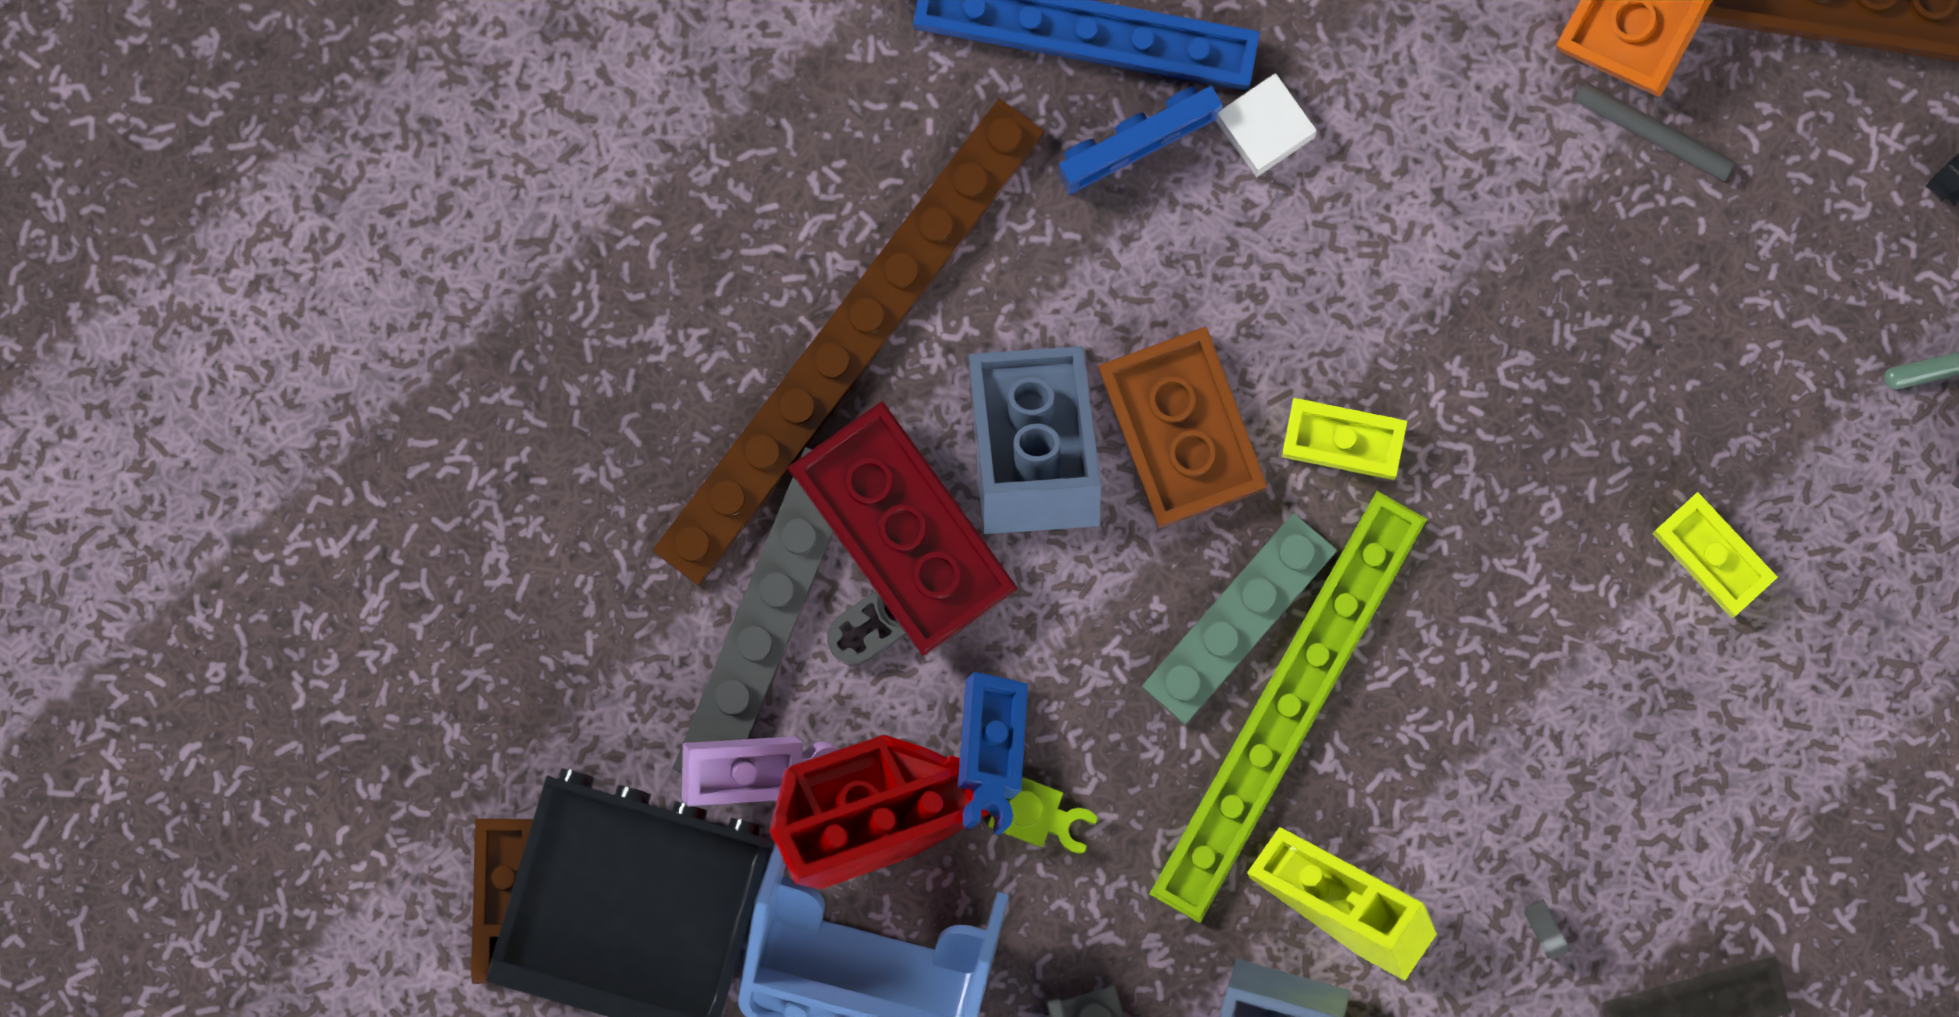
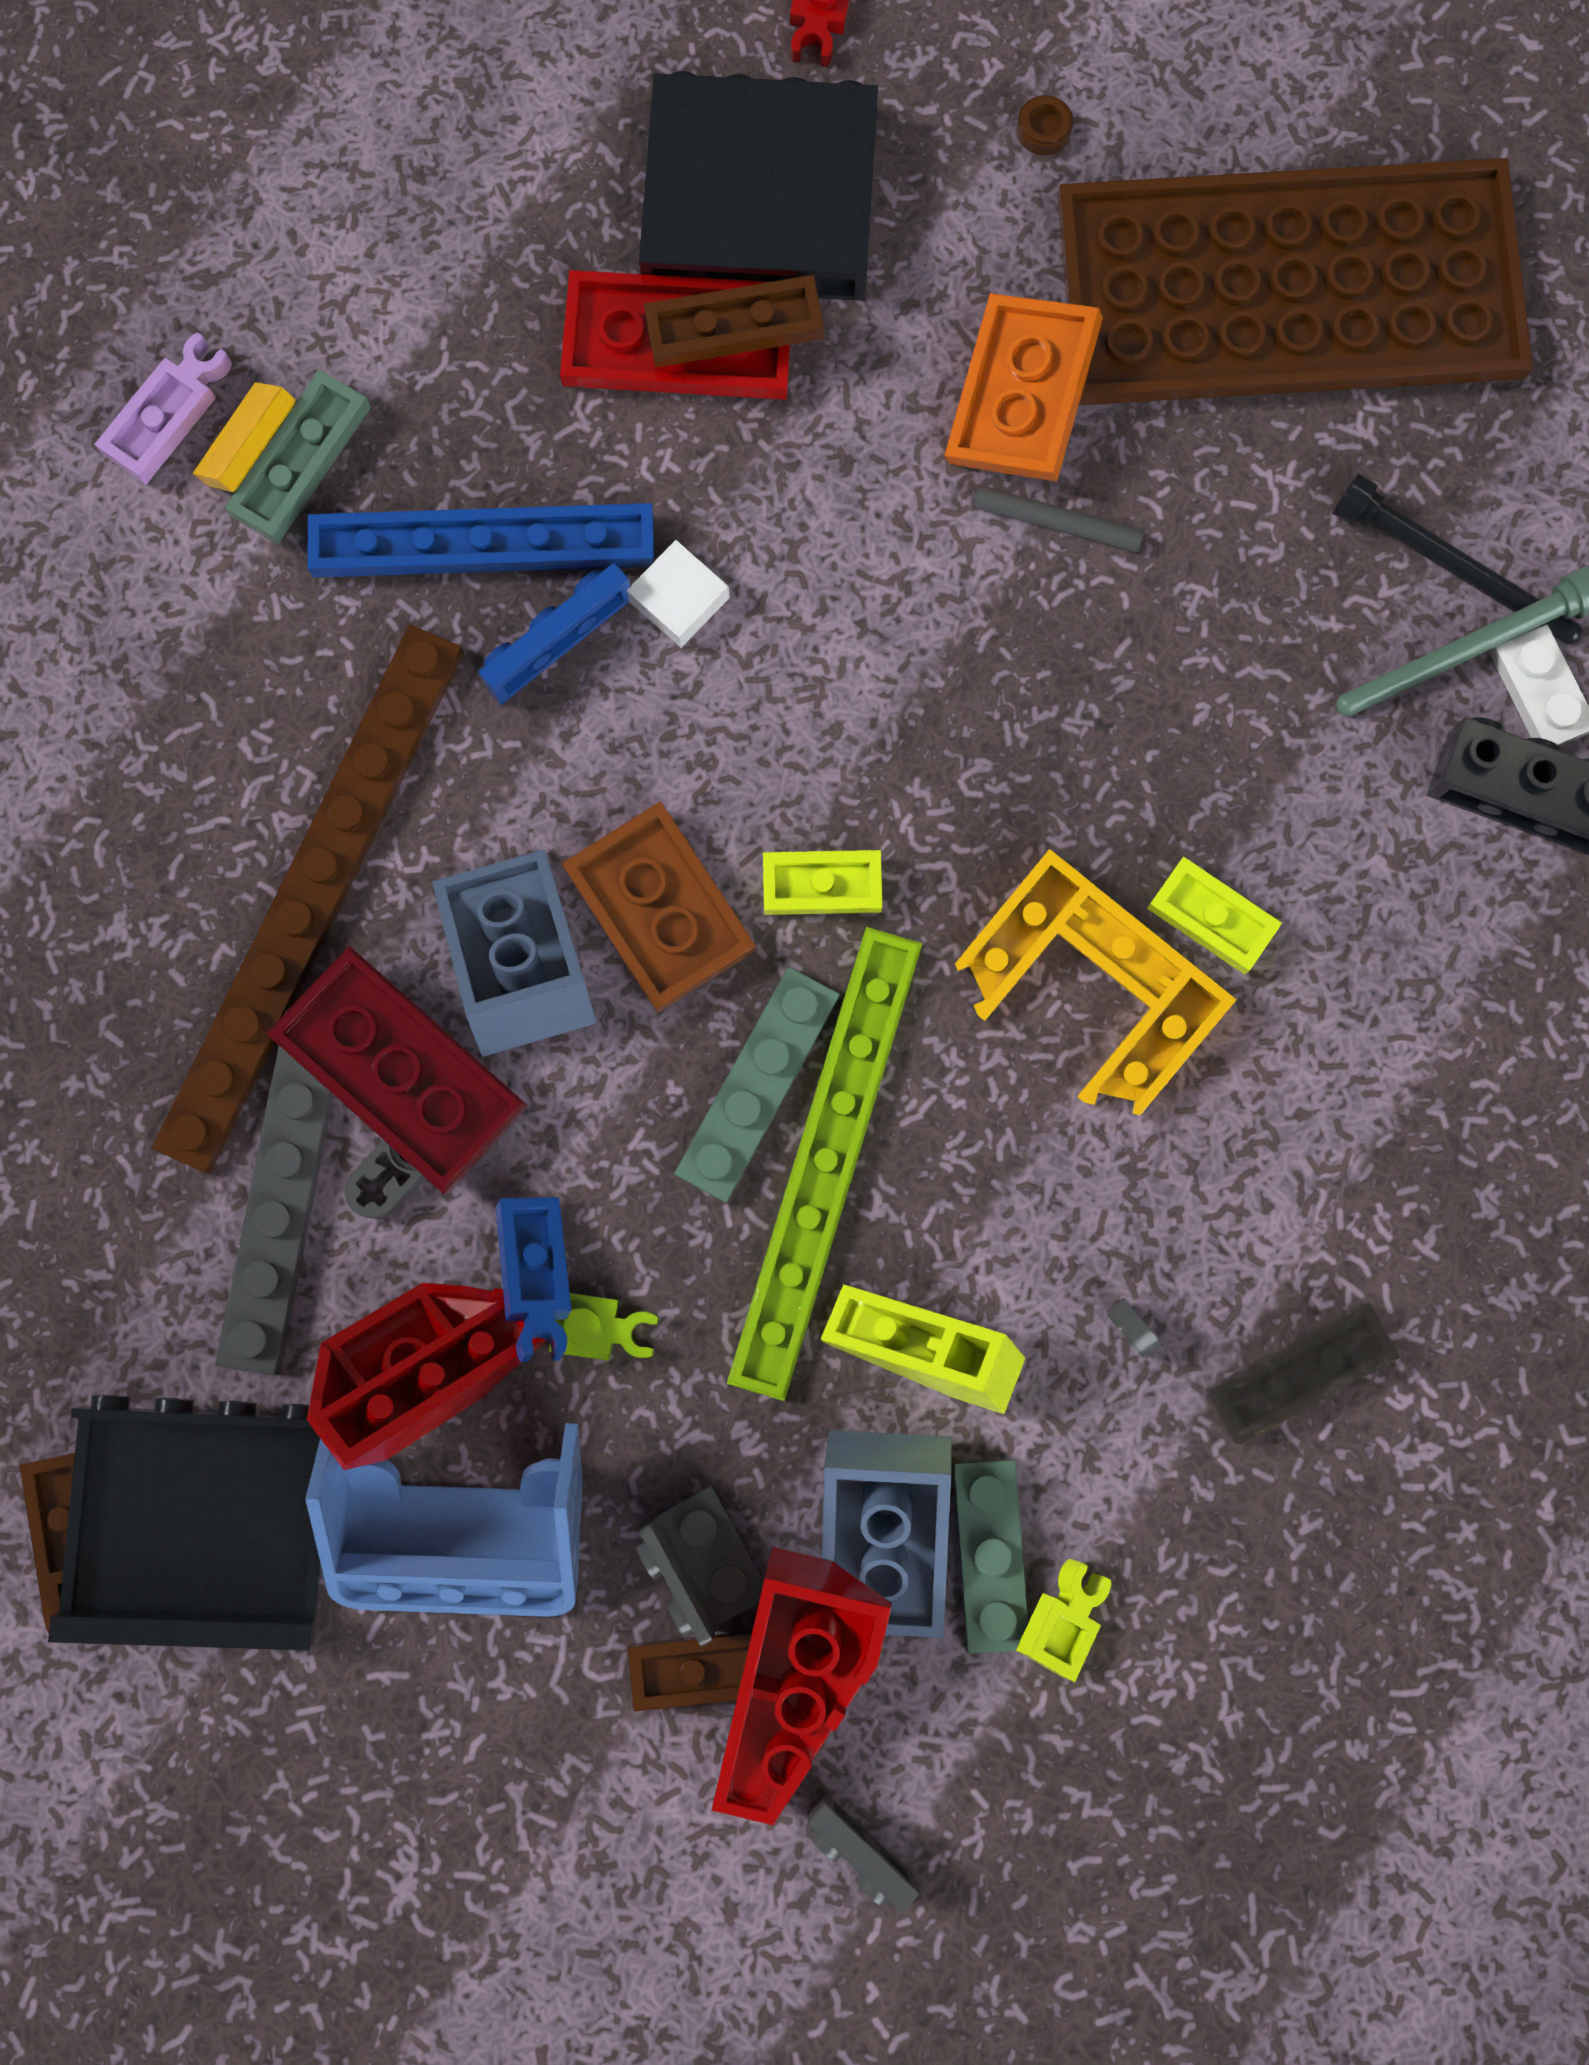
camera: 15 degrees left, 0 degrees up
(741, 768) = (278, 1352): lavender plate -> none
(1662, 624) = (1064, 903): none -> yellow wedge

